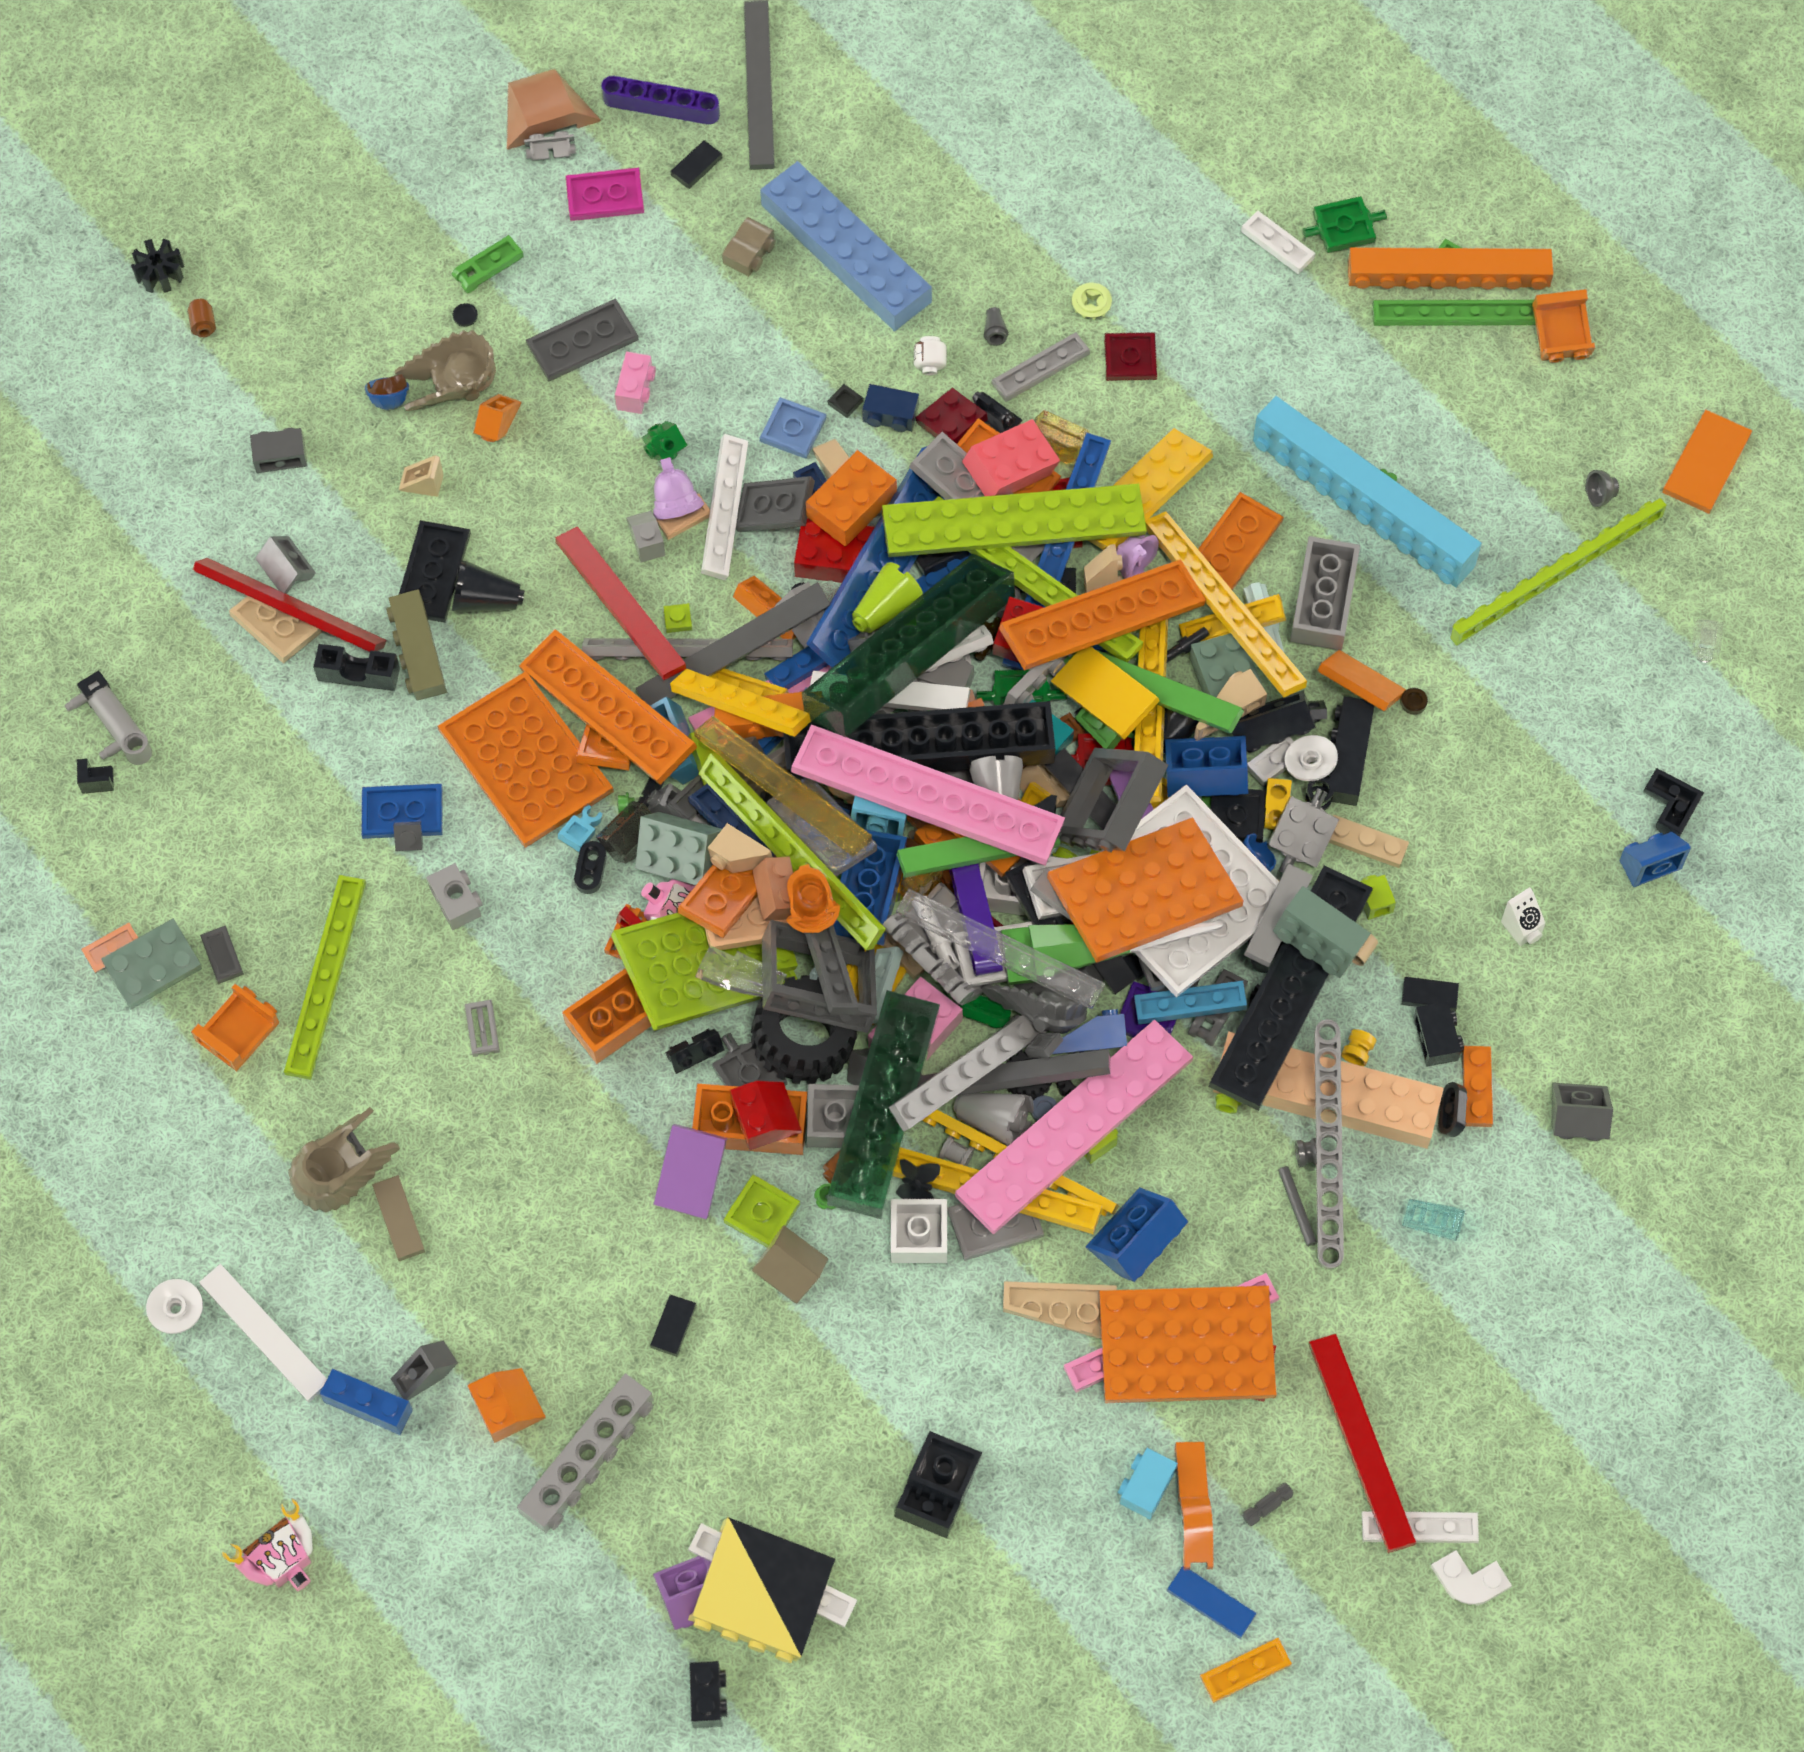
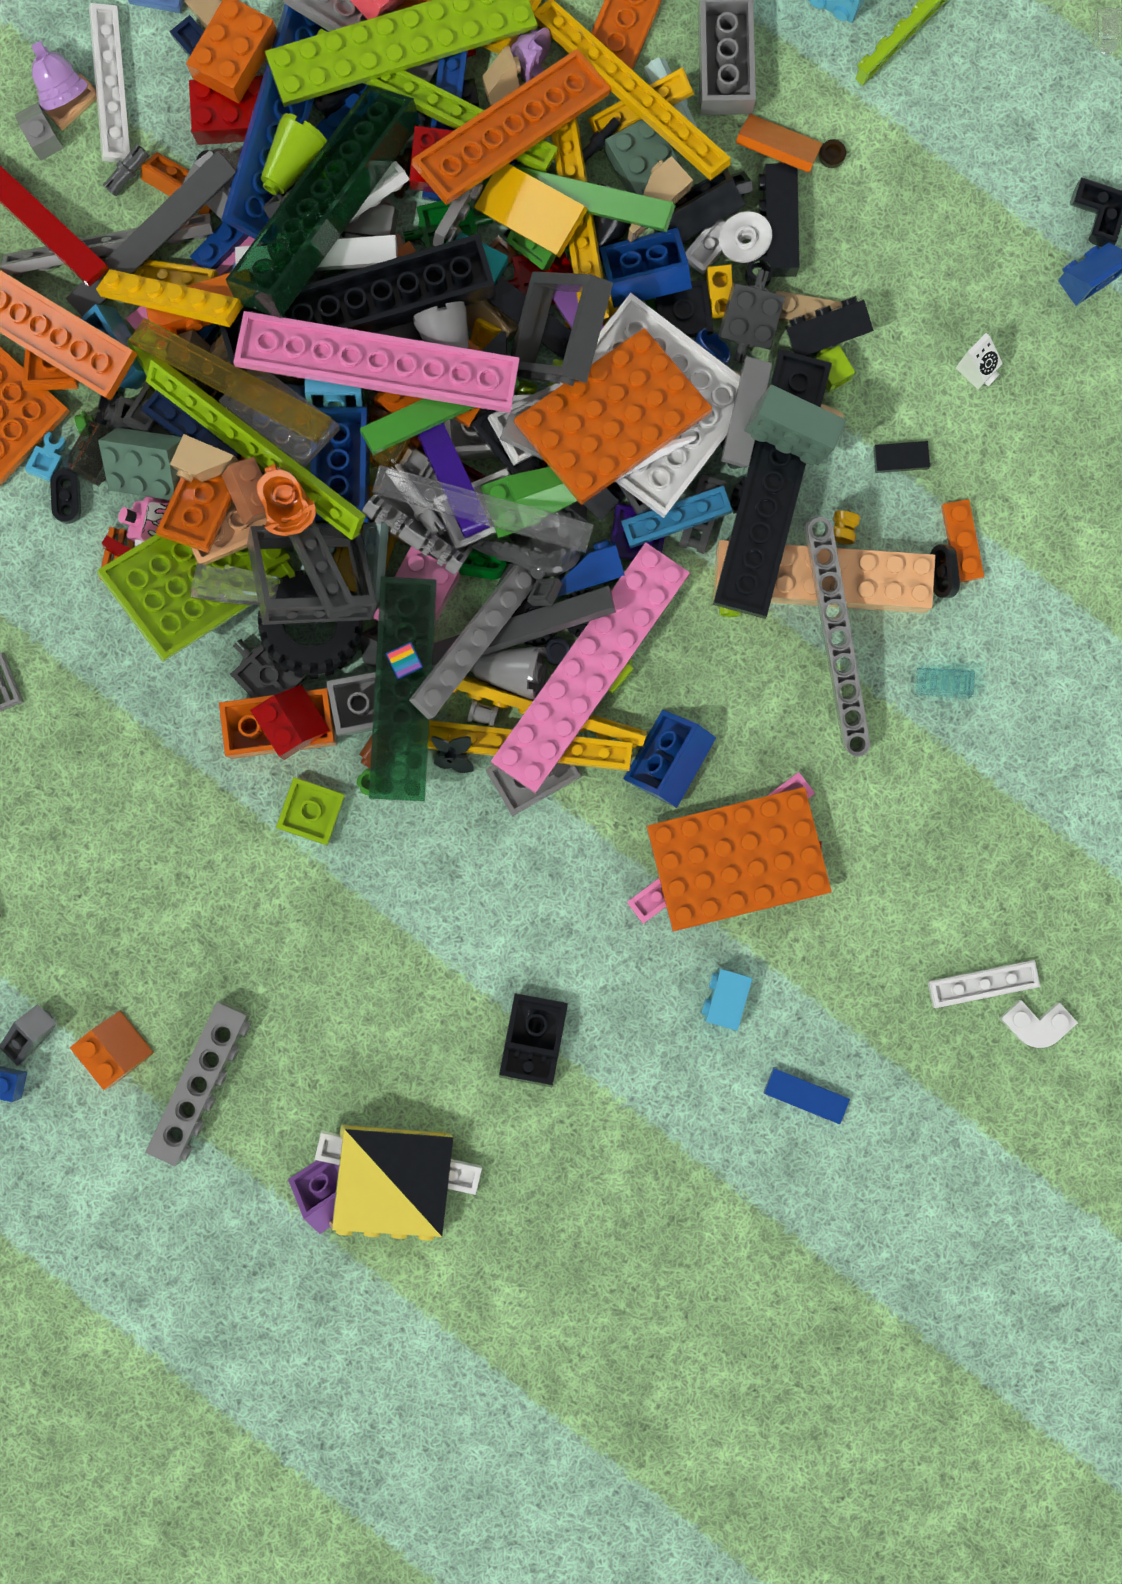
camera: 15 degrees left, 20 degrees up
(607, 1017) = (115, 651): orange brick -> none
(663, 441) = (31, 23): green brick -> none
(673, 1325) = (252, 939): black tile -> none
(677, 618) = (91, 213): lime plate -> none
(690, 1171) = (232, 789): medium lavender tile -> none
(703, 1047) = (201, 670): black hinge -> none
(705, 1694) = (362, 1287): black brick -> none
(722, 585) = (126, 169): none -> dark grey pin
(774, 504) = (157, 70): dark grey tile -> none
(790, 1265) = (350, 858): dark tan slope -> none
(892, 1071) = (404, 660): none -> tile
(918, 1230) = (463, 801): white brick -> none
(1057, 1304) = (612, 843): tan wing -> none
(1194, 1503) = (774, 1008): orange piece -> none
(1245, 1670) = (849, 1152): light orange tile -> none
(1268, 1504) = (840, 992): dark grey axle -> none
(1297, 1206) = (814, 697): dark grey bar -> none
(1305, 1152) = (813, 643): dark grey wheel -> none
(1362, 1443) = (917, 917): red tile -> none
(1377, 855) = (829, 326): none -> black brick
(1438, 1034) = (917, 497): black brick -> none
(1581, 1111) = (1066, 546): dark grey slope -> none

